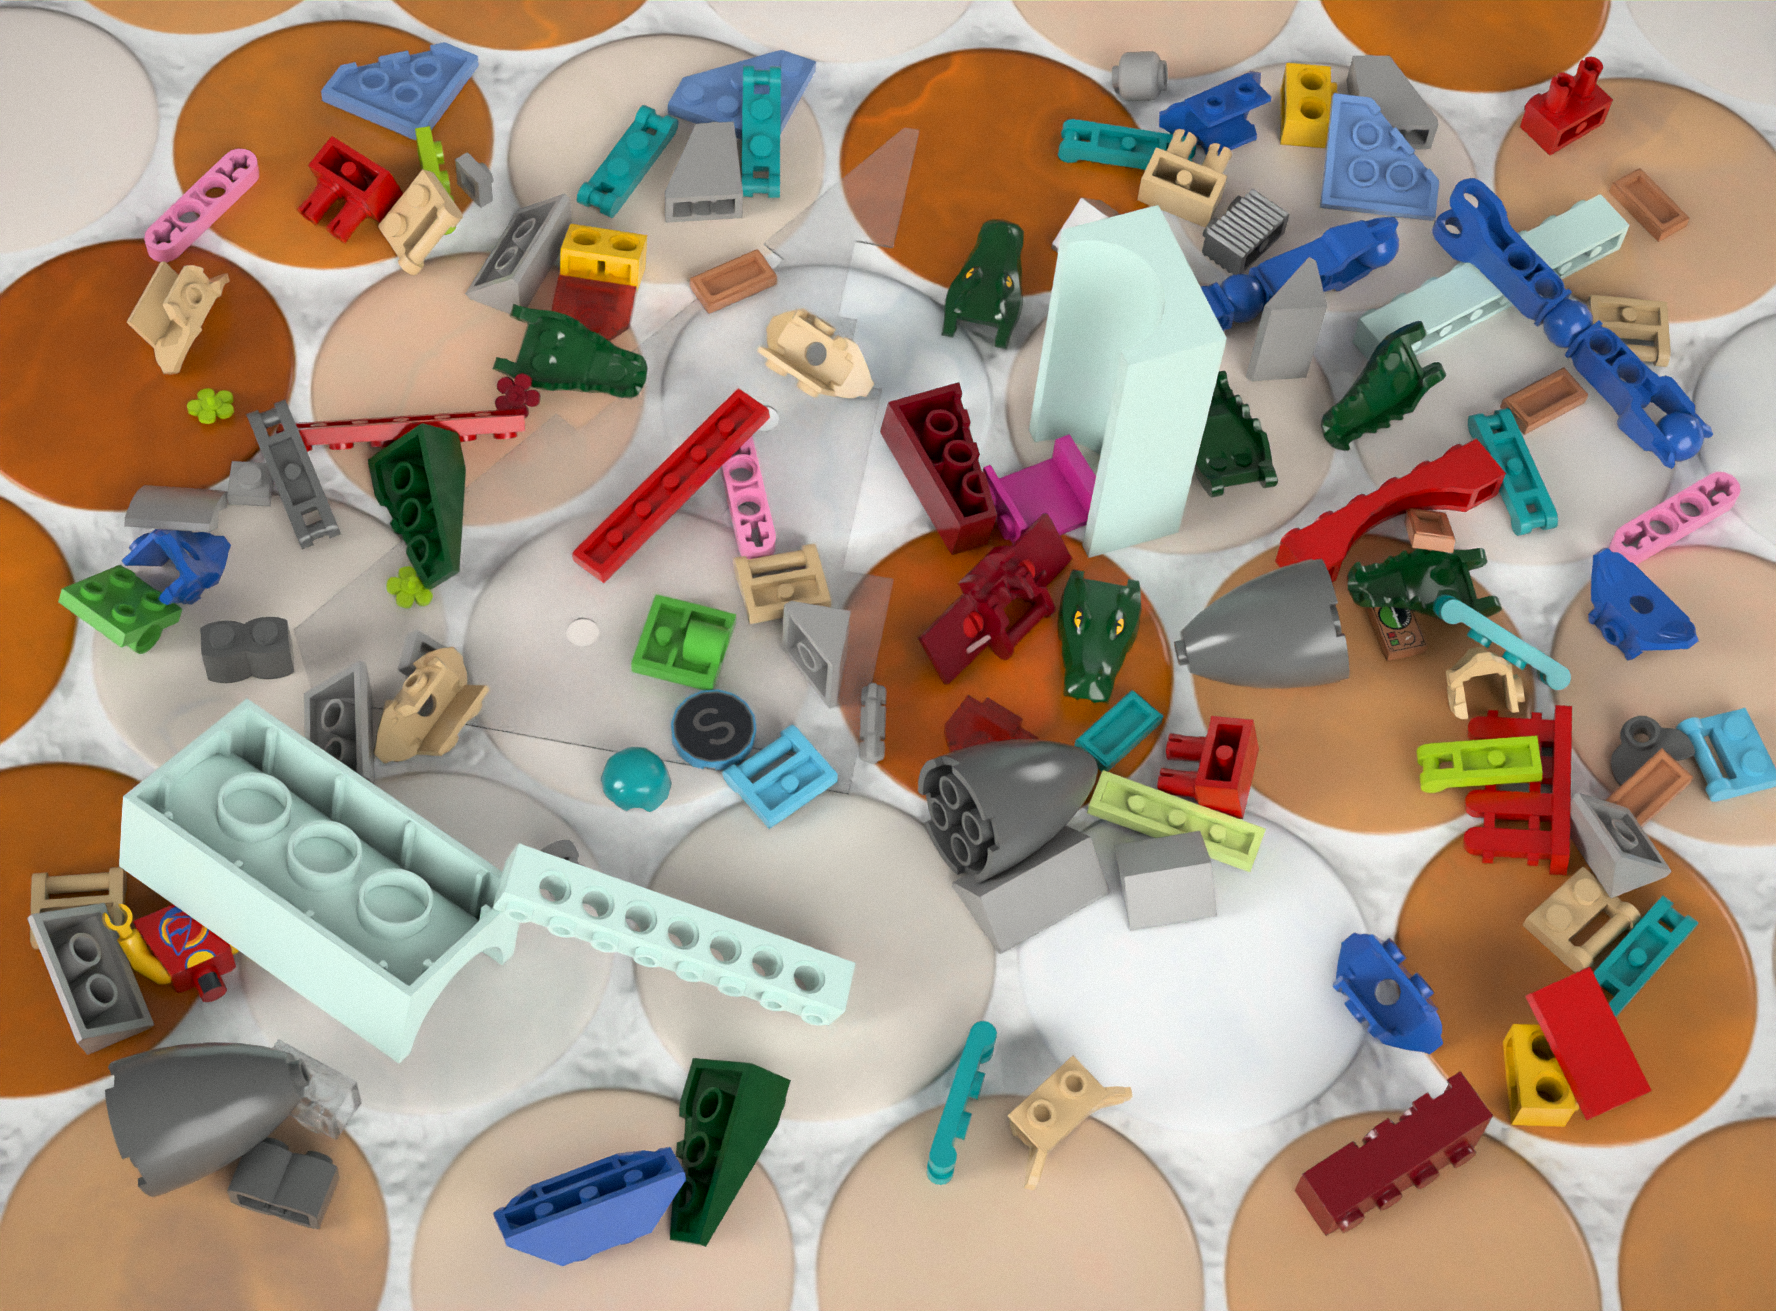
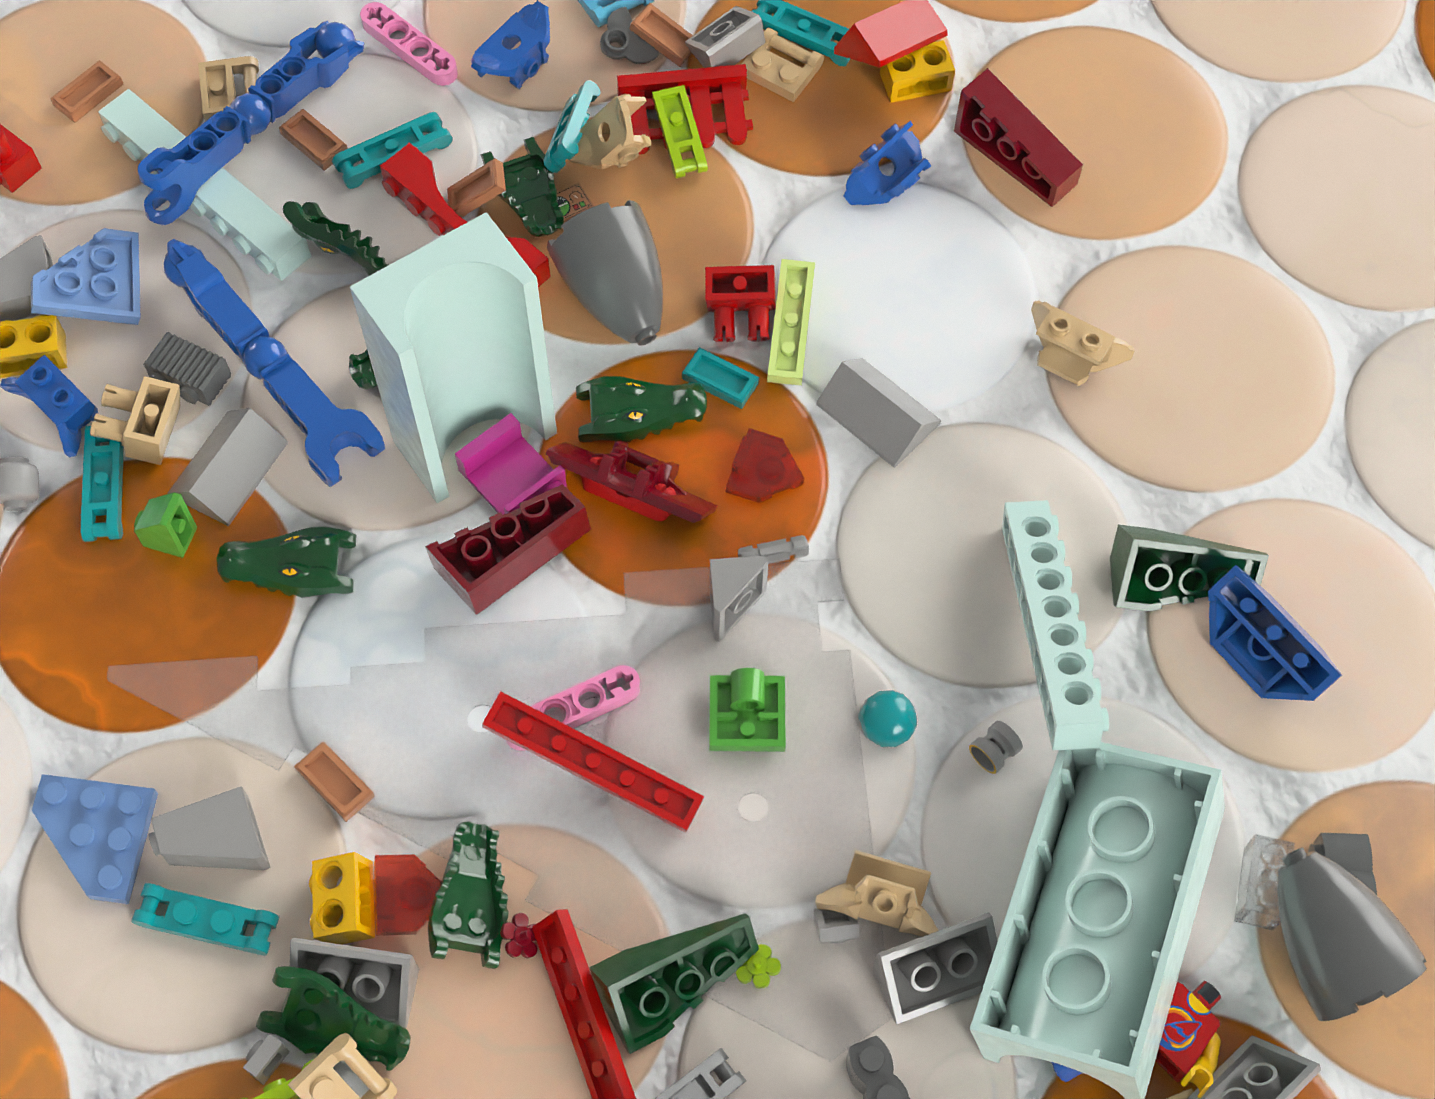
camera: 100 degrees left, 5 degrees up
(487, 227) = (321, 1011): none -> dark green animal
(713, 729) = (820, 670): black tile -> none
(761, 132) = (147, 794): teal plate -> none
(766, 595) = (671, 644): tan plate -> none
(786, 786) = (854, 596): medium azure plate -> none
(841, 373) = (397, 710): tan piece -> none
(954, 1119) = (1080, 417): teal plate -> none
(1002, 801) = (833, 425): dark grey cylinder -> none
(1052, 184) = (166, 525): none -> bright green slope
(1166, 880) = (845, 315): slope -> none
(1289, 327) = (299, 300): light grey slope -> none

